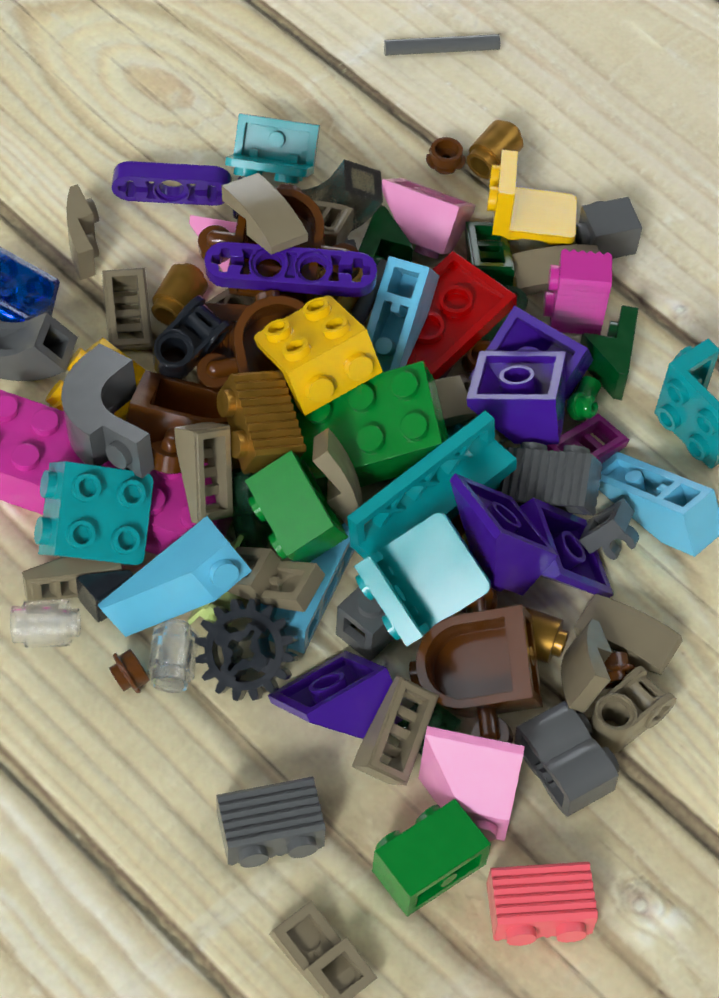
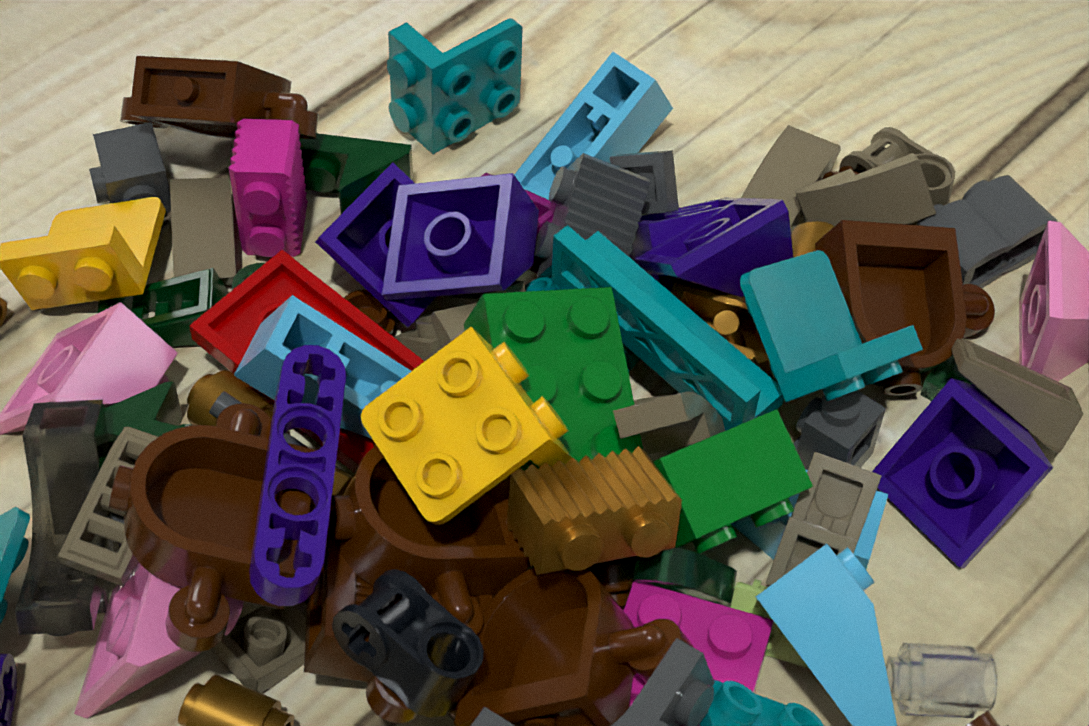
camera: 90 degrees left, 5 degrees down
(191, 458) = (670, 591): dark tan slope -> none
(234, 665) = (924, 573): black gear -> none
(267, 213) = (187, 492): dark tan slope -> none
(653, 260) = (211, 97): none -> reddish brown piece

